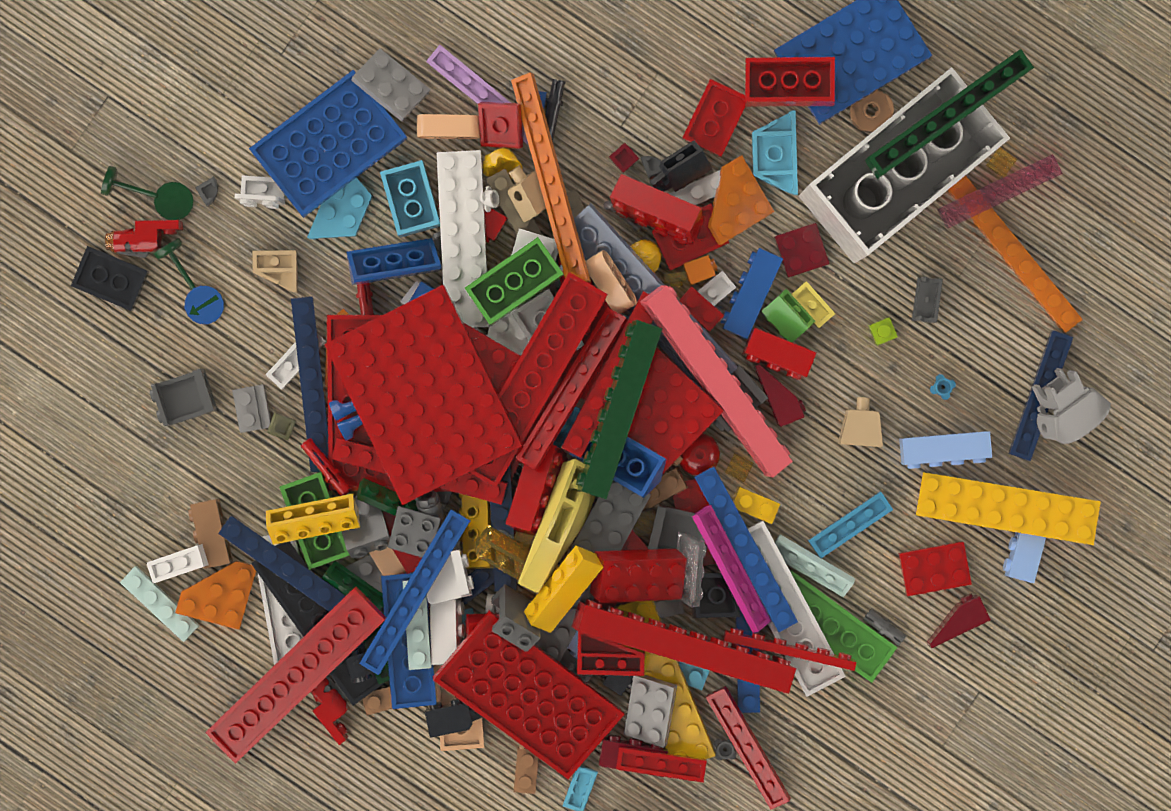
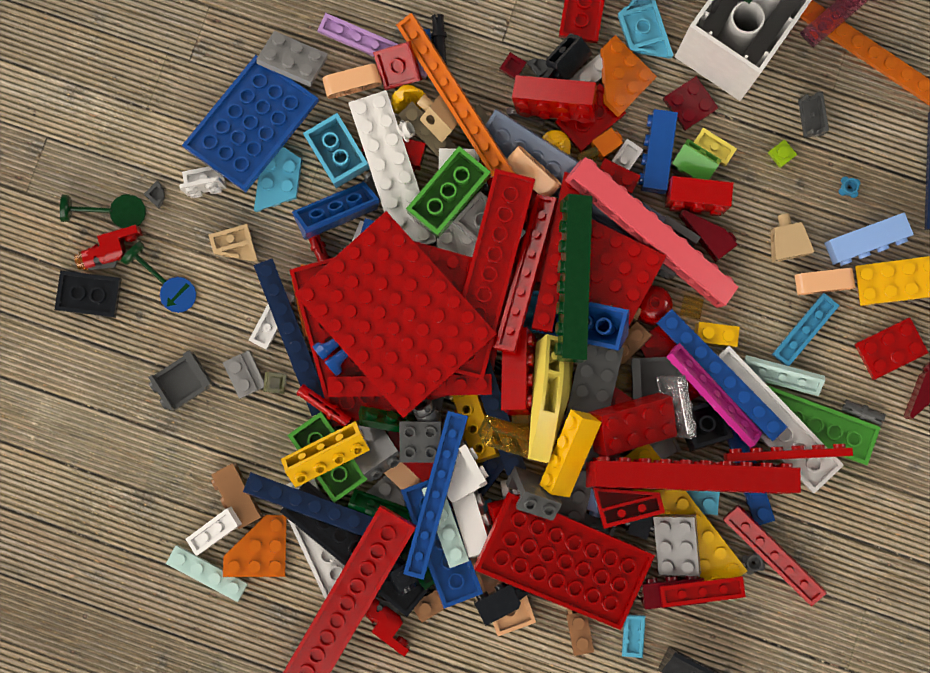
camera: 15 degrees left, 5 degrees down
(886, 480) = (824, 281): none -> light nougat beam

